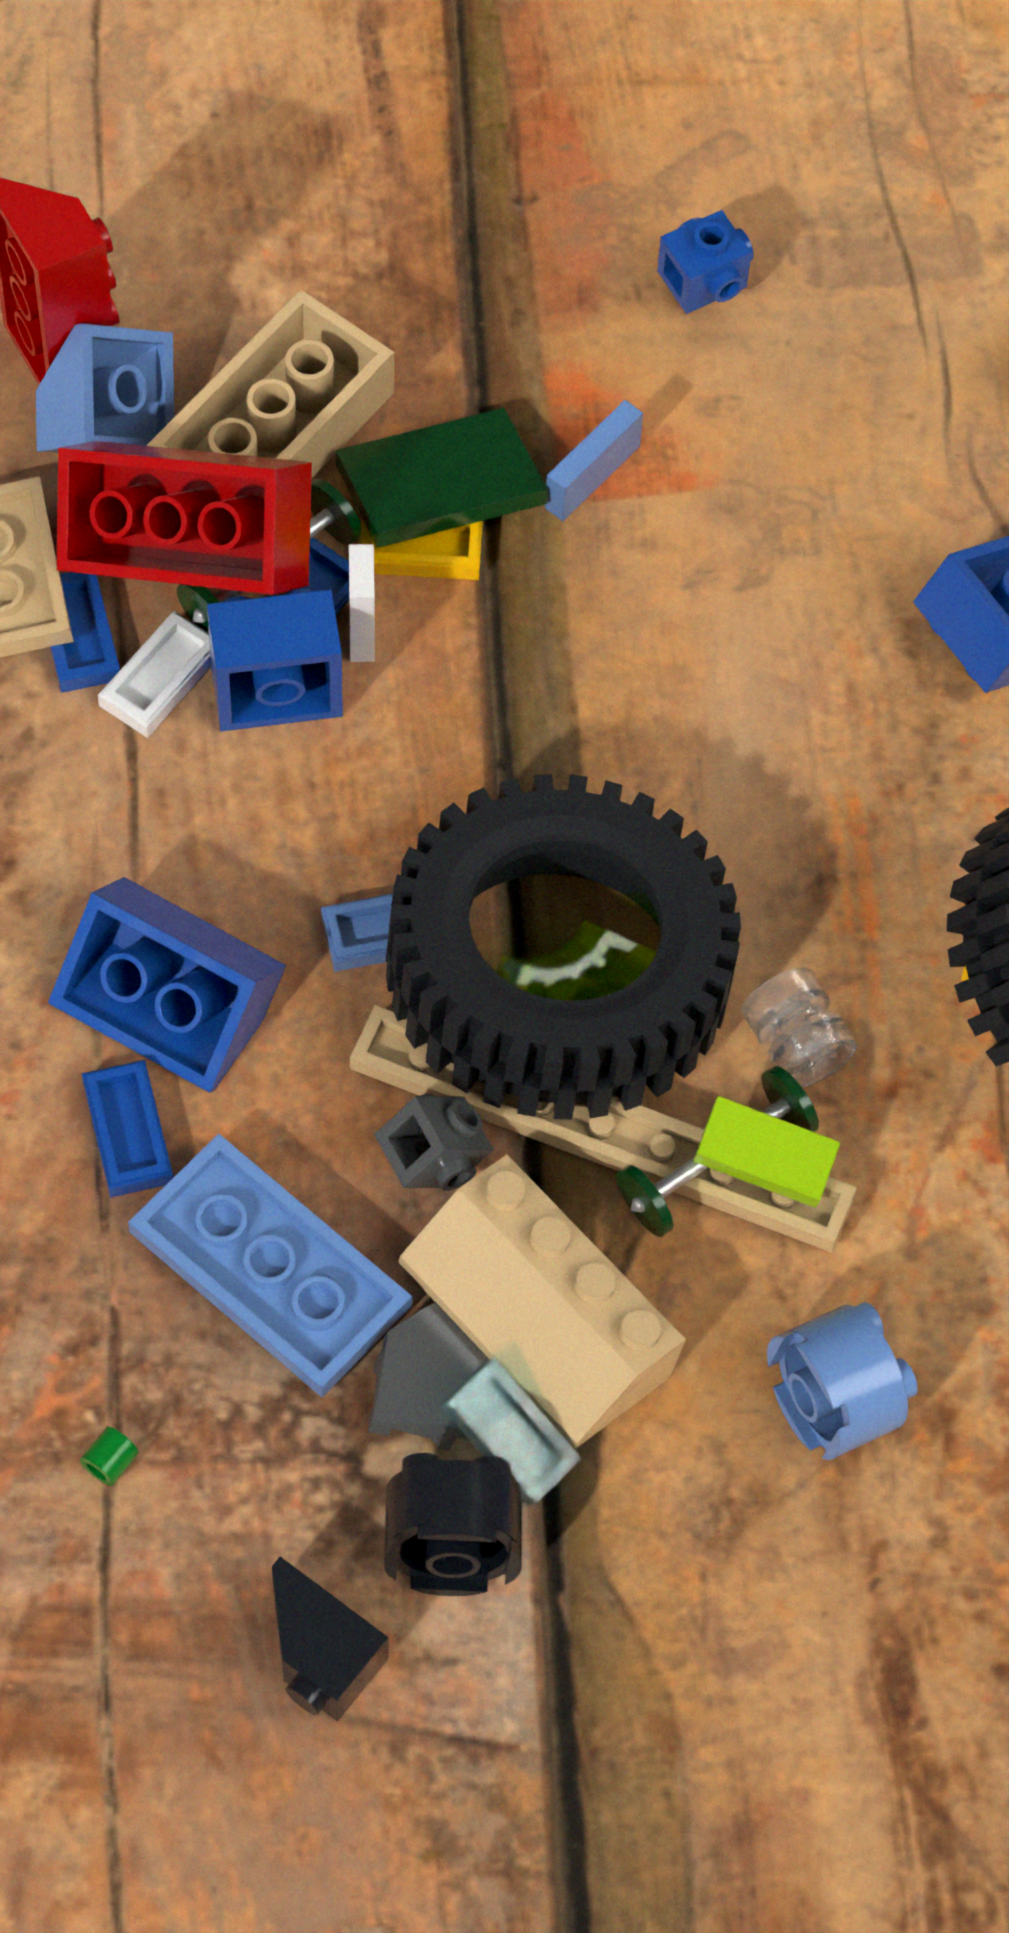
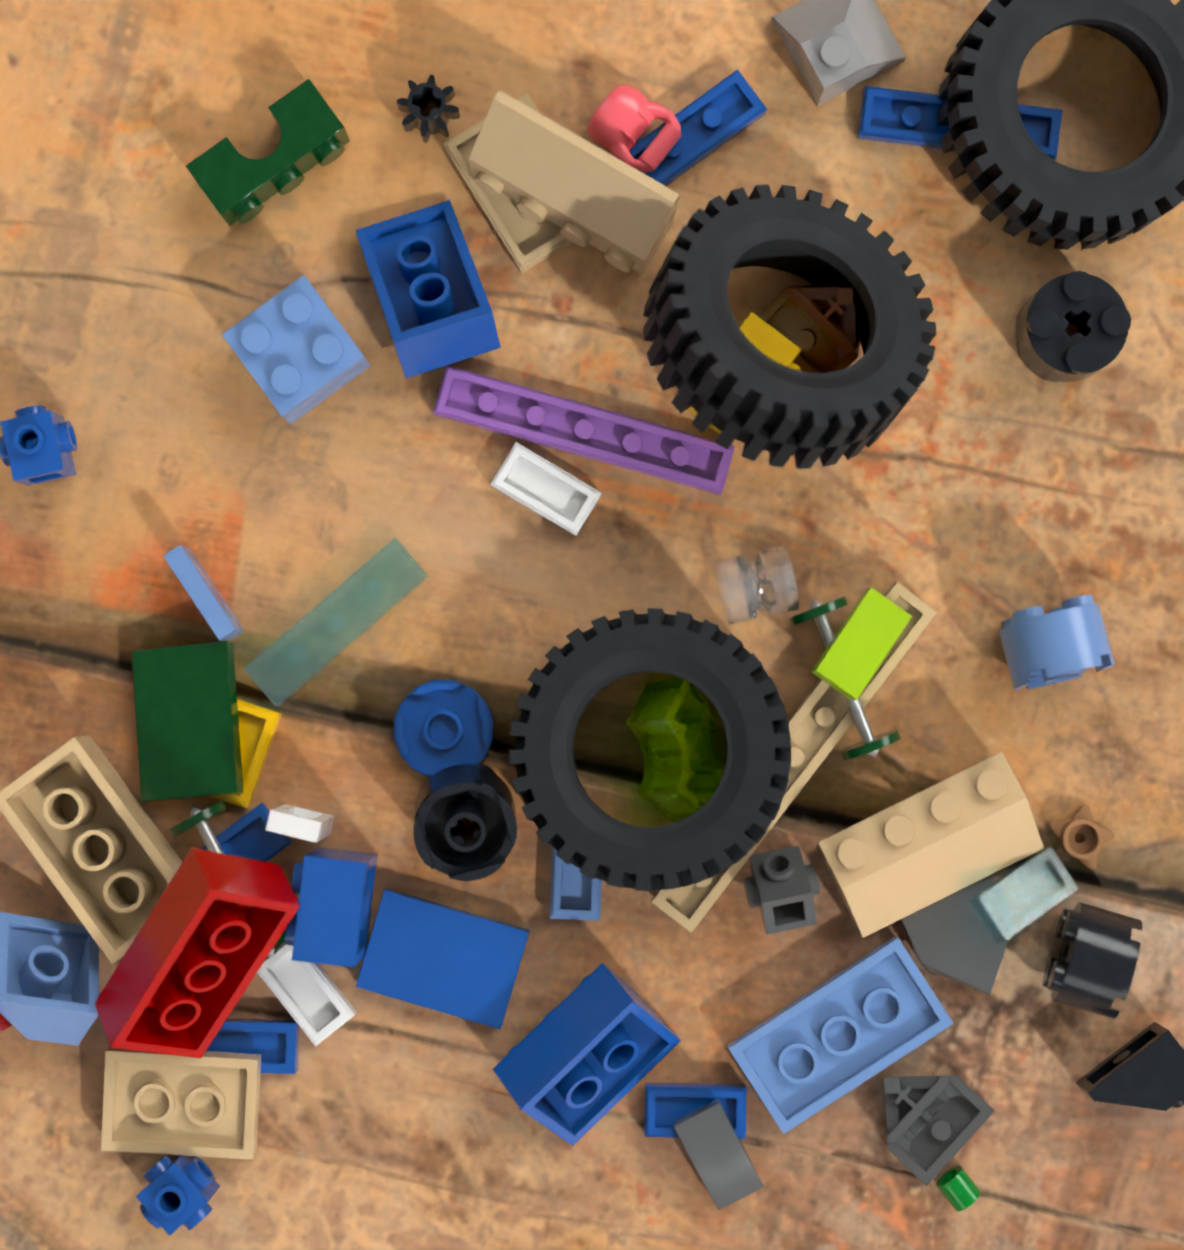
camera: 70 degrees left, 25 degrees up
(79, 1152) = (717, 1154): none -> dark grey slope
(187, 1404) = (930, 1120): none -> dark grey slope
(239, 808) = (442, 958): none -> blue tile
(394, 744) = (442, 838): none -> black brick
(512, 737) = (443, 727): none -> blue tile
(604, 607) = (336, 622): none -> clear light blue tile
(606, 1484) = (1093, 835): none -> medium nougat plate
(834, 787) = (546, 489): none -> white tile
(905, 485) = (296, 350): none -> medium blue brick
(919, 812) = (583, 430): none -> medium lavender tile

